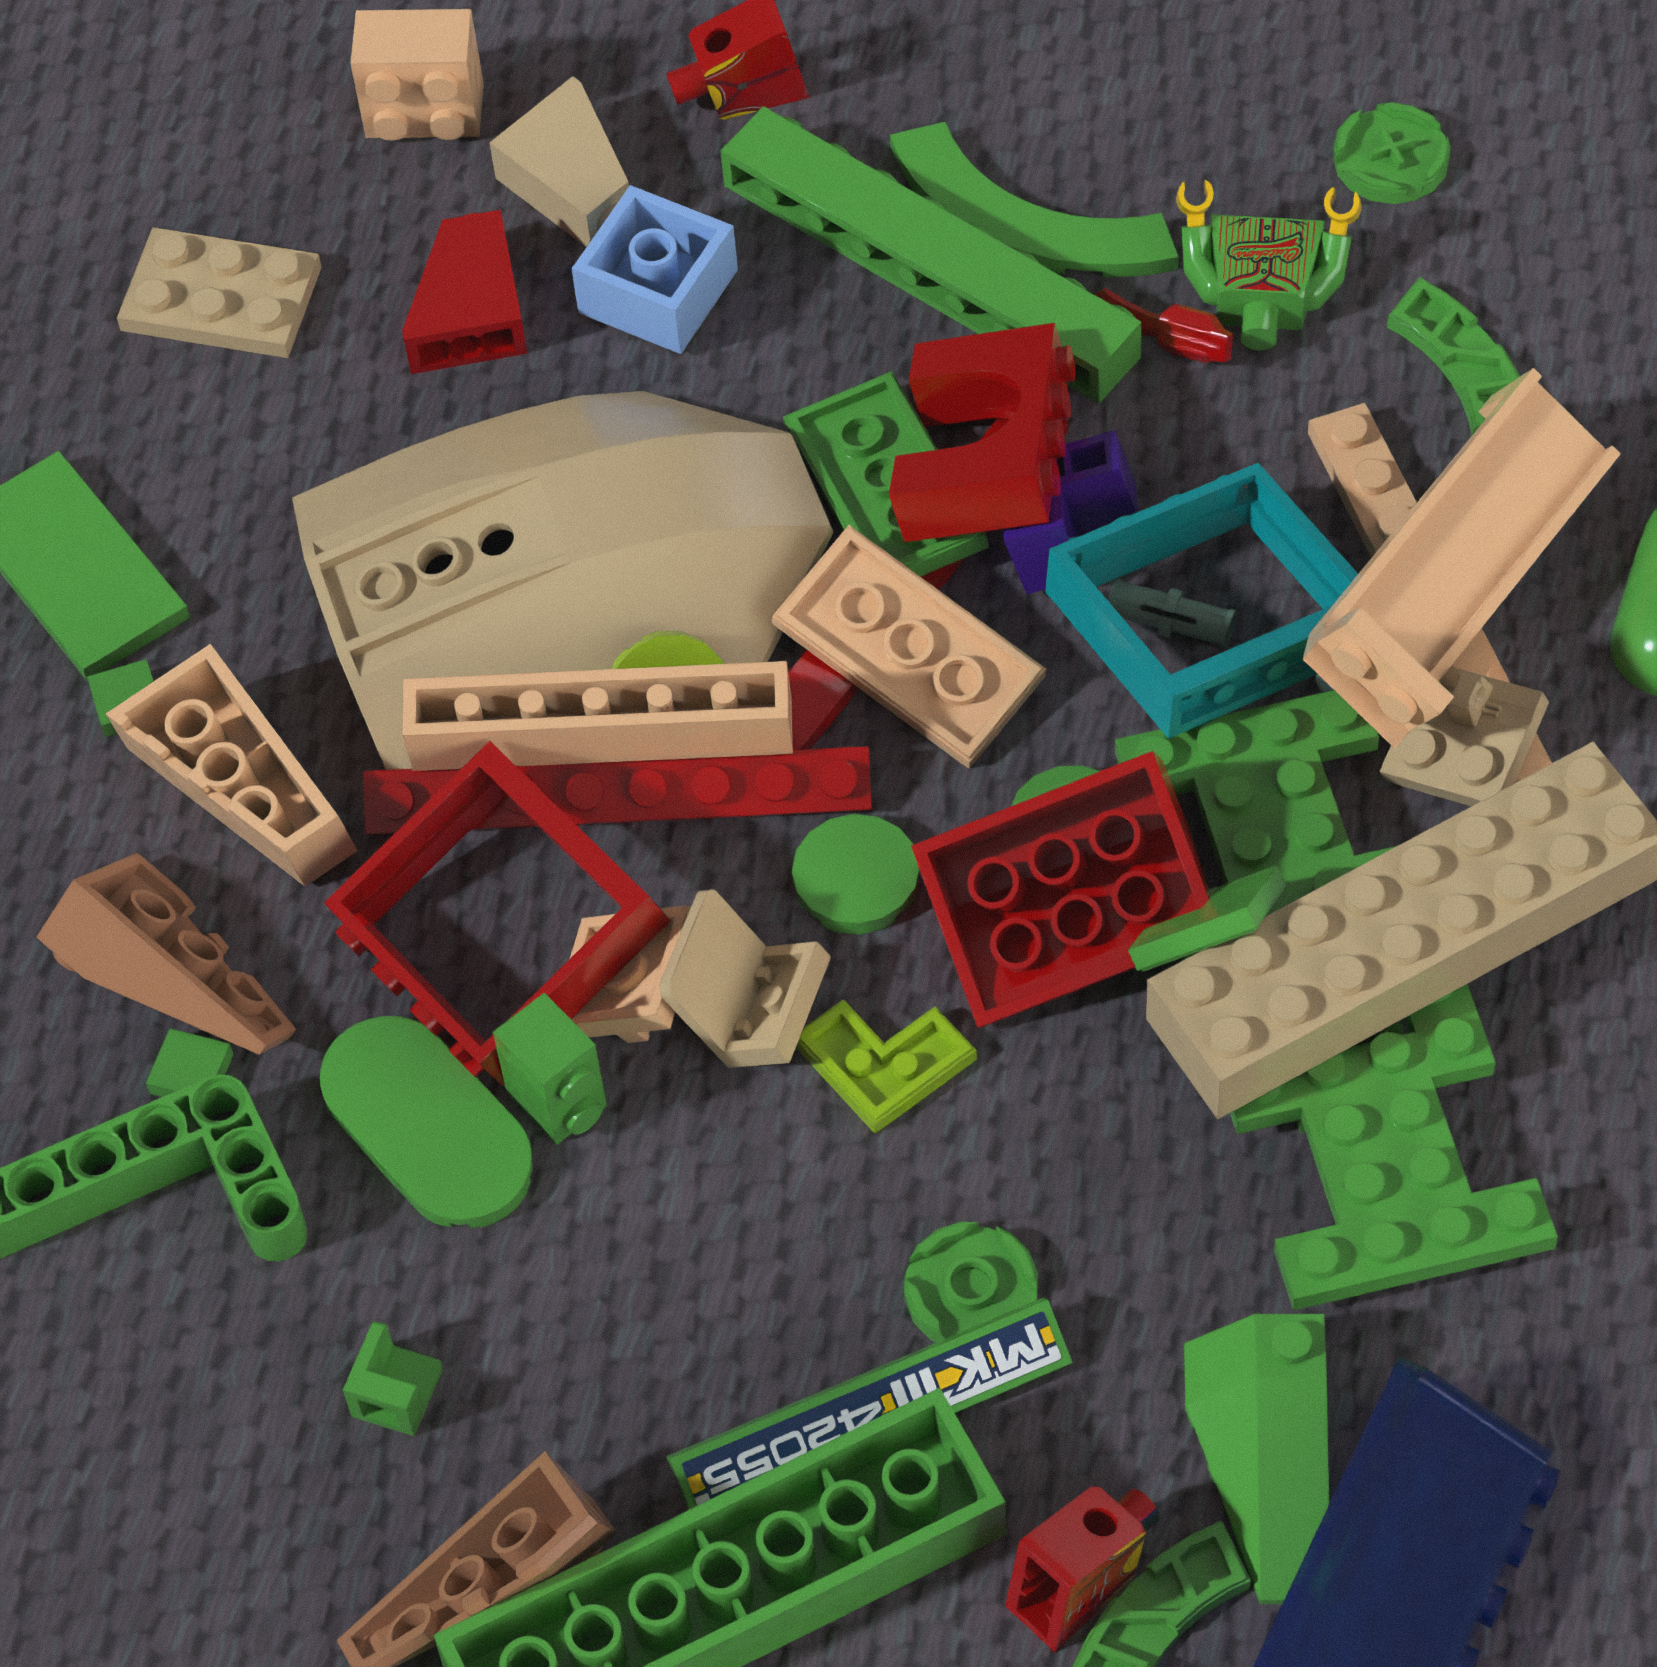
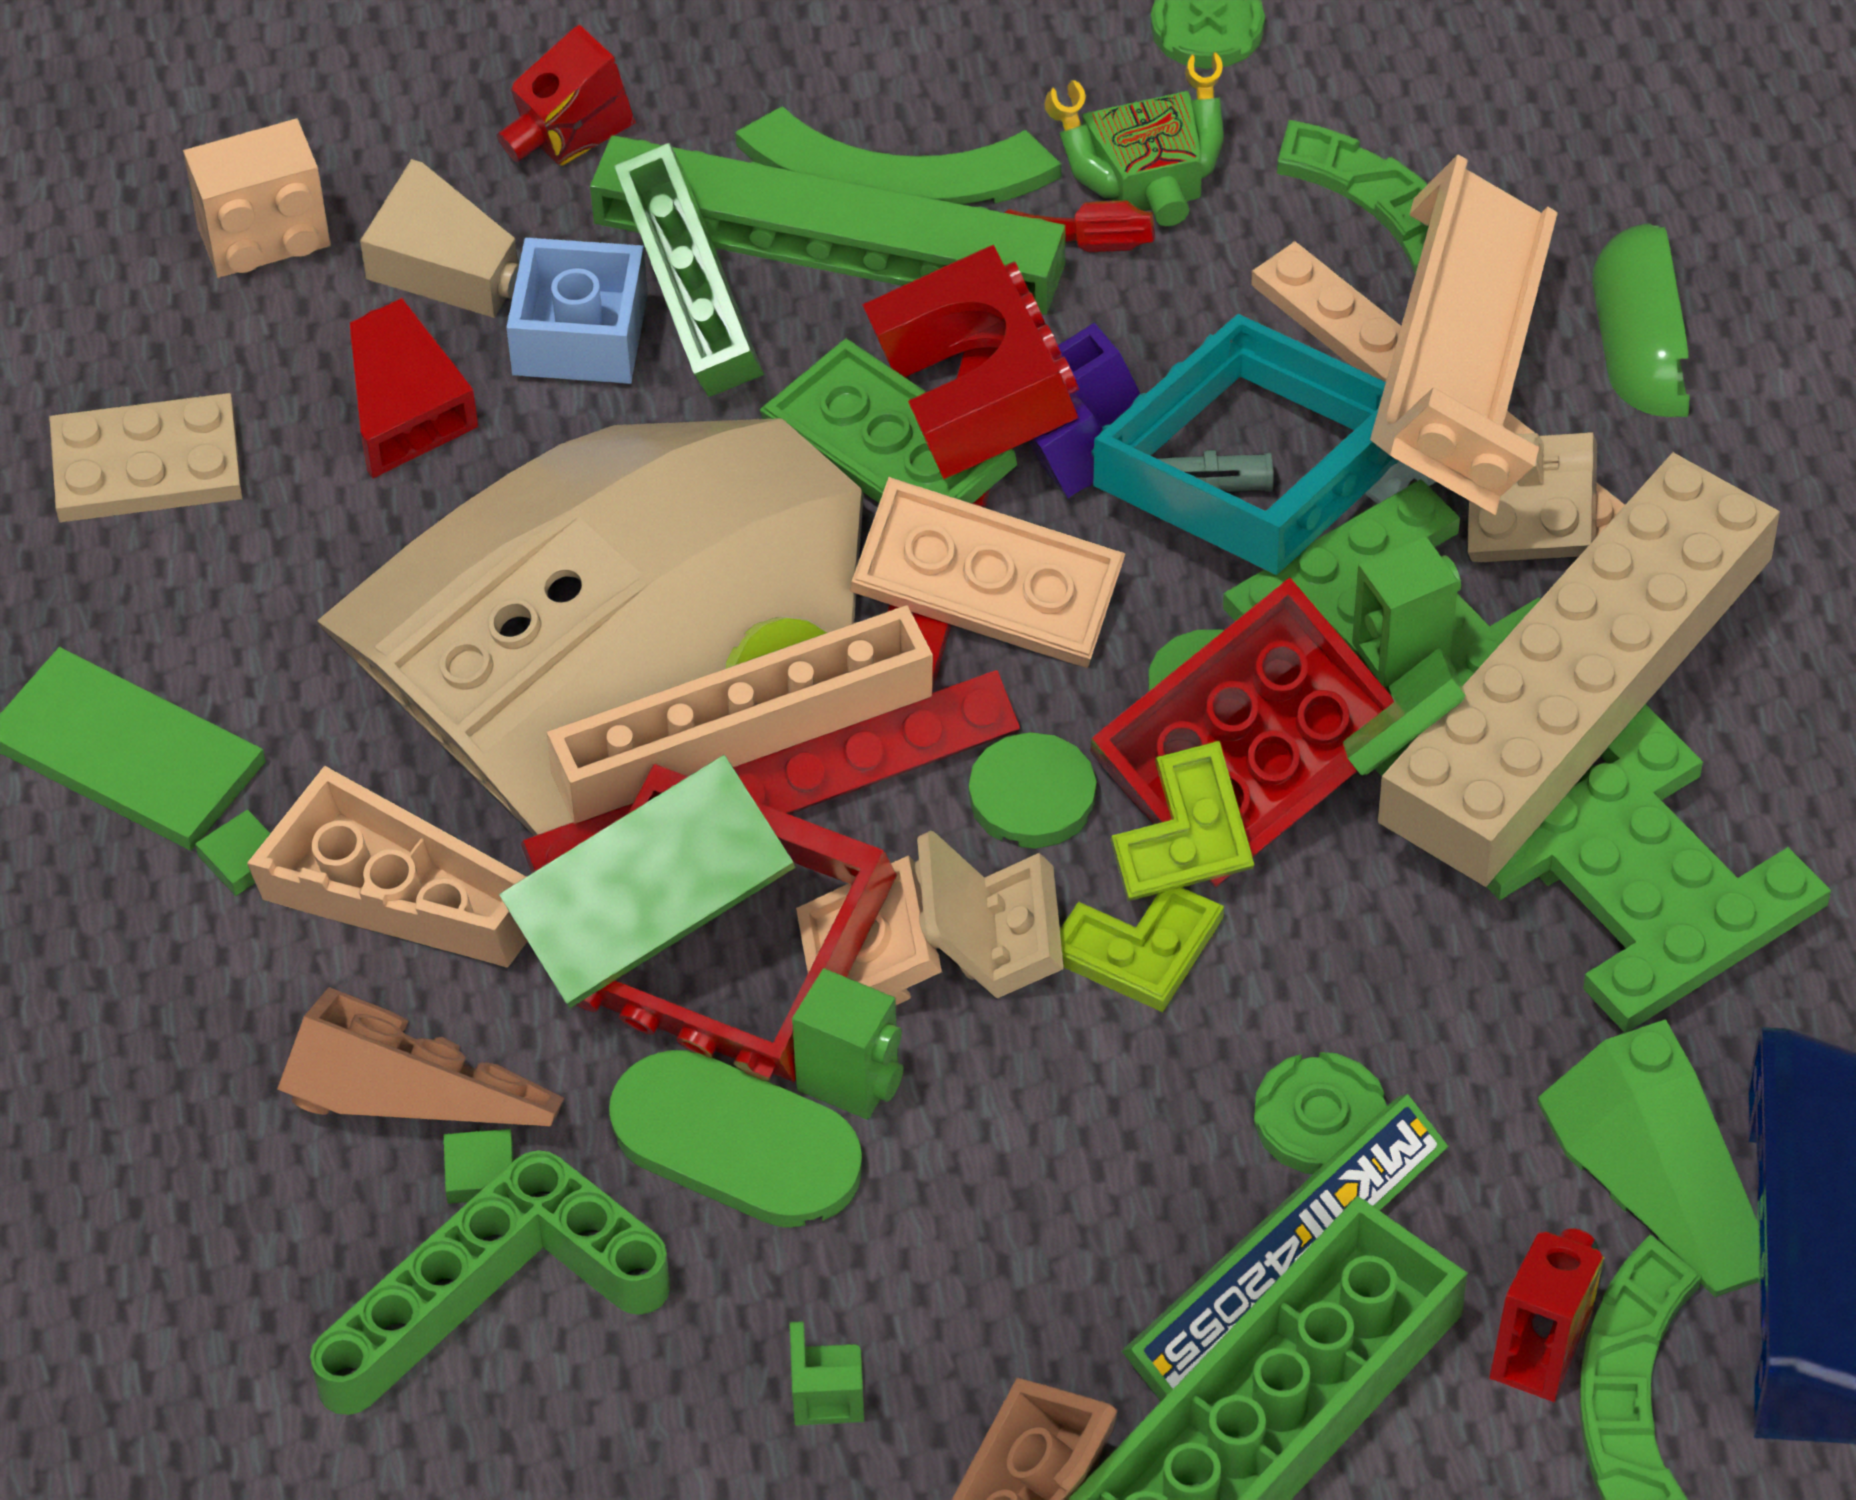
camera: 25 degrees left, 5 degrees down
(431, 852) = (647, 881): none -> tile
(765, 262) = (688, 270): none -> bright green brick
(976, 978) = (1200, 839): none -> lime tile
(1257, 816) = (1404, 608): none -> bright green brick

